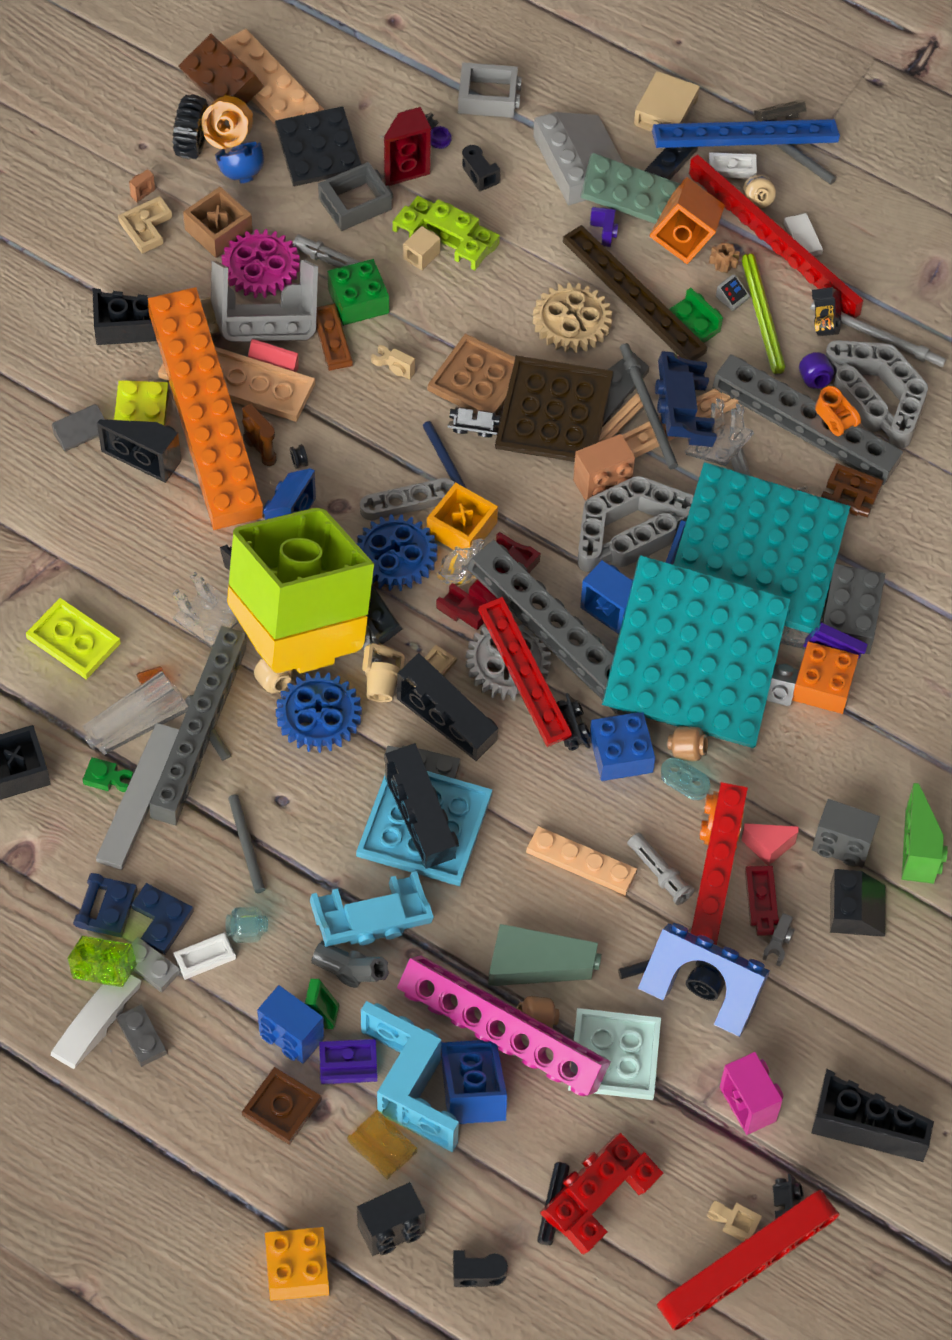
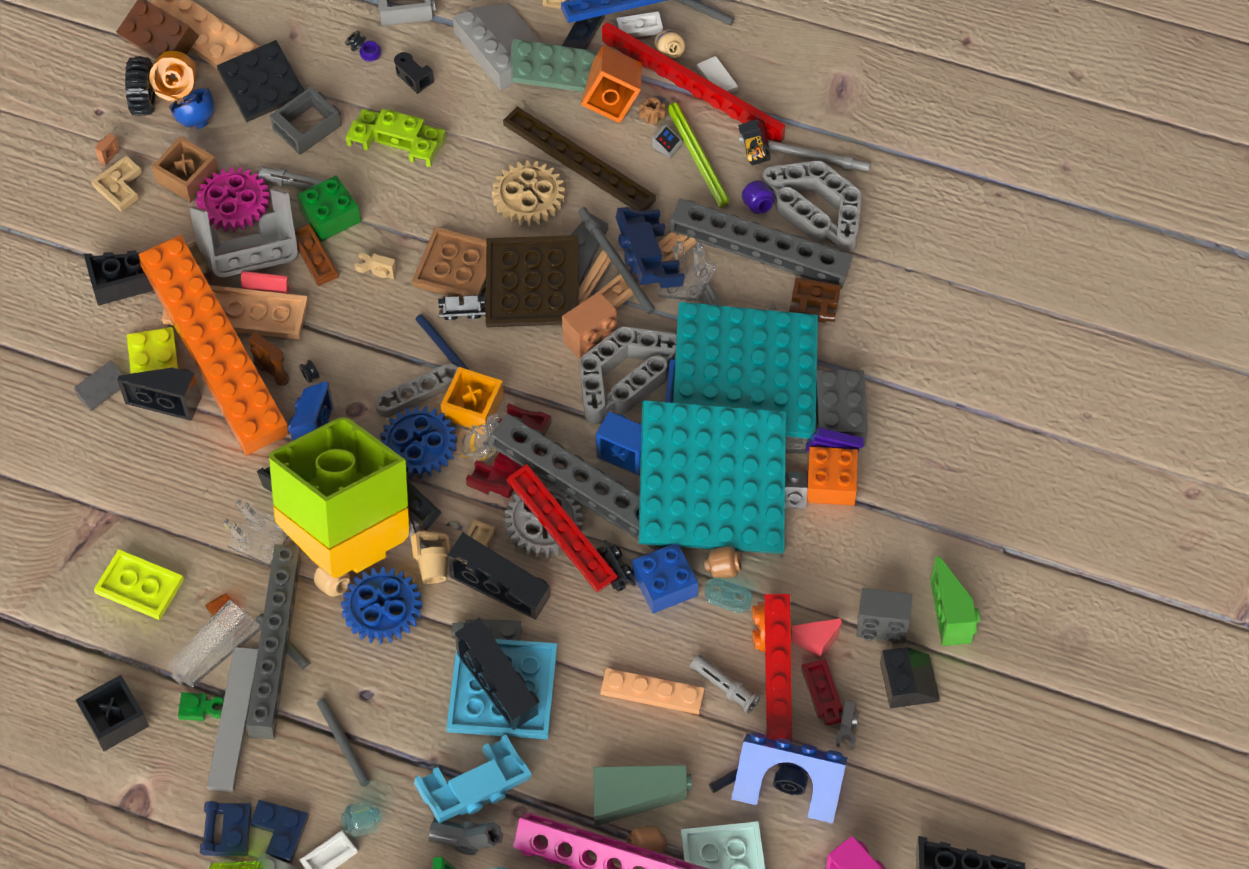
camera: 10 degrees left, 0 degrees up
(407, 147) = (344, 66): dark red slope -> none
(421, 248) = (377, 156): tan brick -> none
(605, 218) = (537, 96): dark purple bracket -> none
(698, 315) = (641, 168): green bracket -> none
(839, 413) = (789, 233): orange piece -> none

